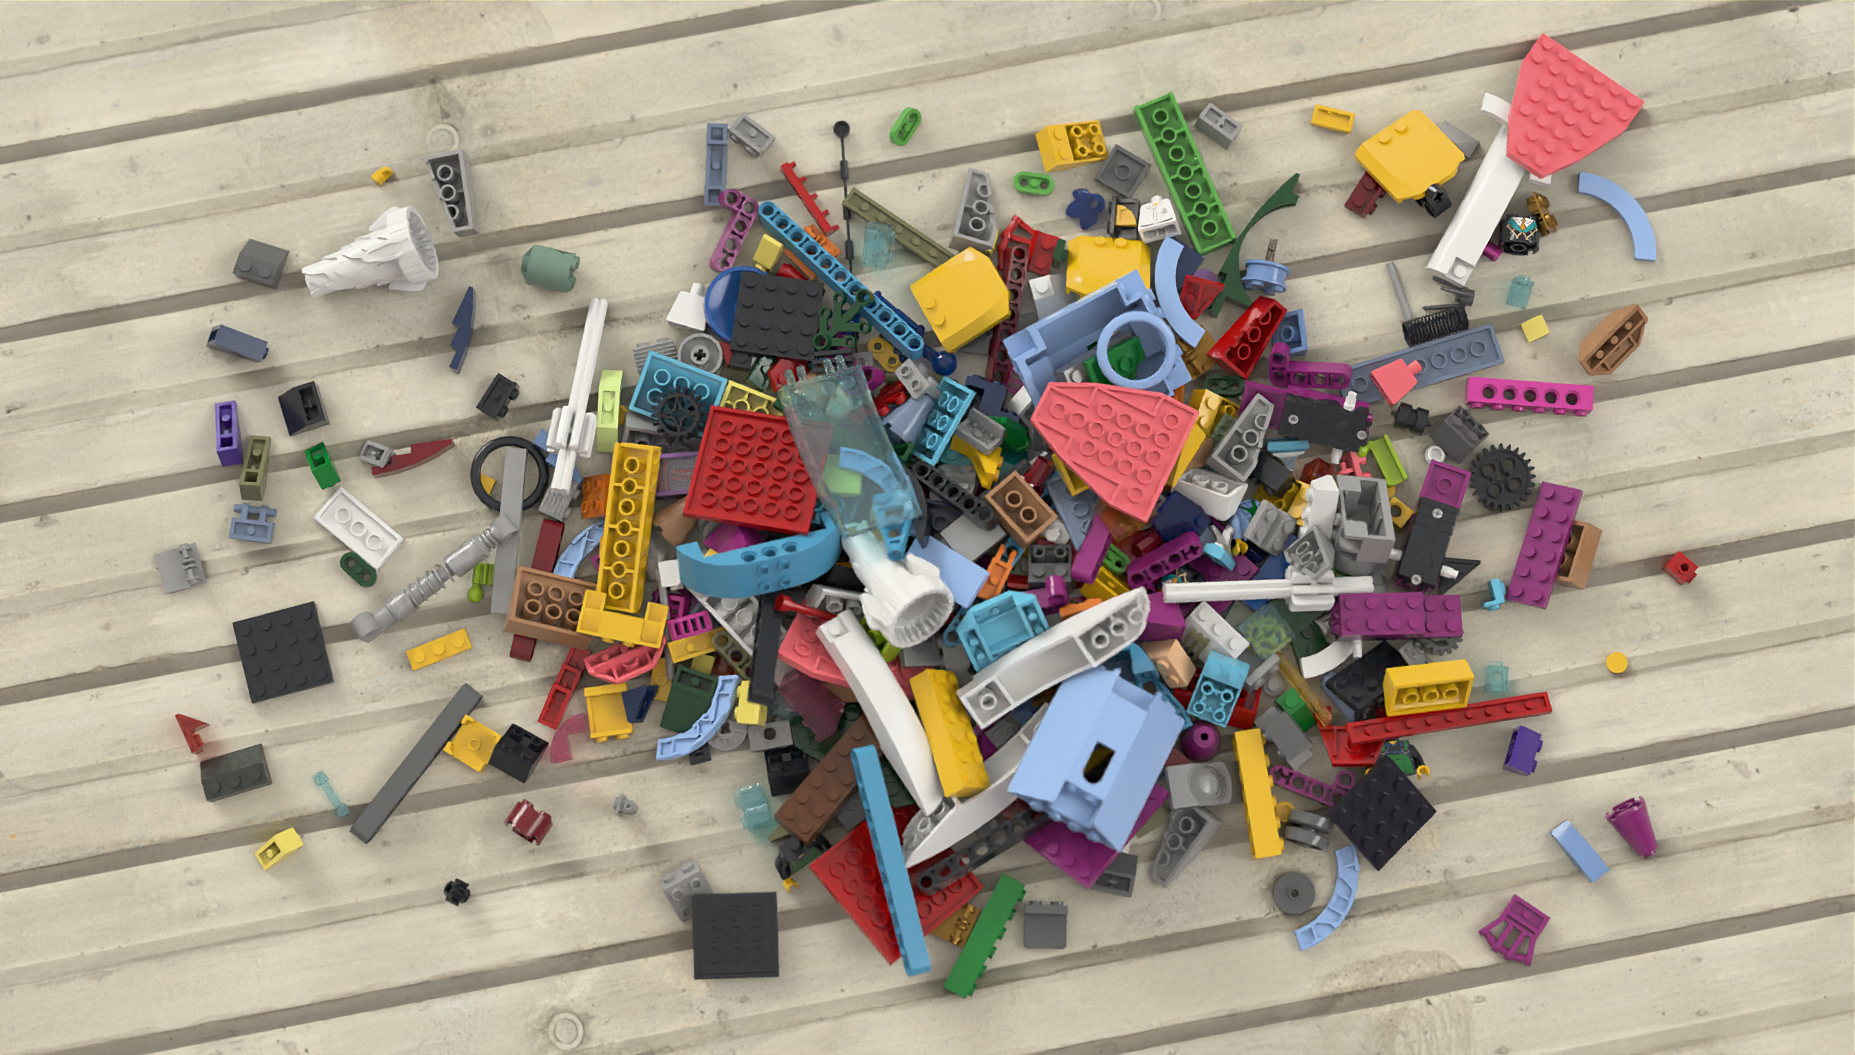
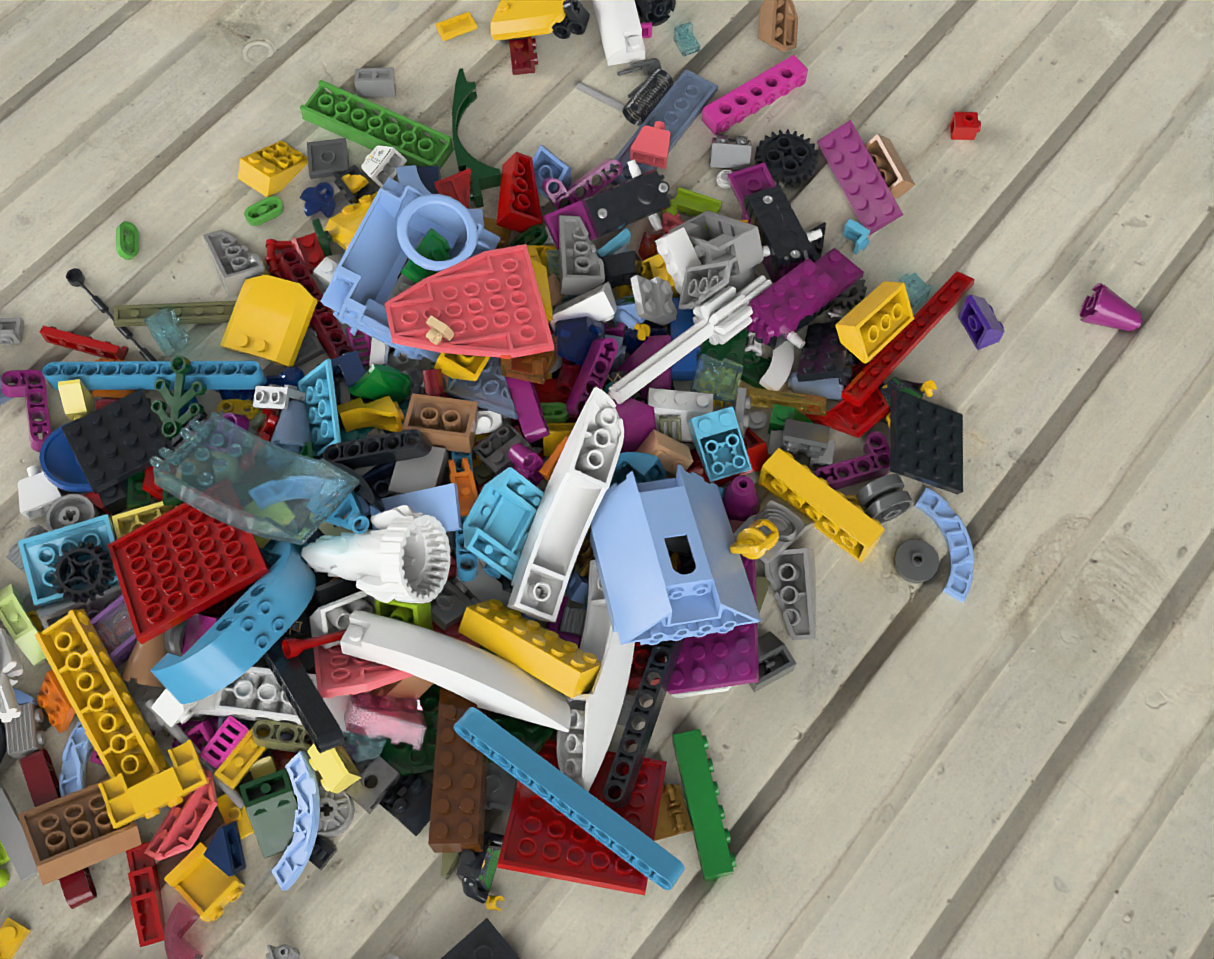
camera: 40 degrees left, 15 degrees down
(754, 808) = (407, 859): clear light blue brick -> none
(981, 432) = (360, 392): light grey bracket -> none
(1045, 925) = (744, 750): dark grey bracket -> none
(1068, 444) = (438, 330): none -> tan tile
(1165, 789) = (753, 542): none -> yellow piece
(1221, 551) = (629, 341): piece -> none
(1266, 274) = (494, 143): medium blue wheel -> none
(1413, 419) = (687, 165): black wheel -> none
(1525, 919) = (1104, 438): magenta plate -> none
(1535, 328) = (719, 53): light yellow slope -> none
(1579, 851) = (1091, 360): medium blue slope -> none
(1616, 662) = (983, 218): yellow tile -> none

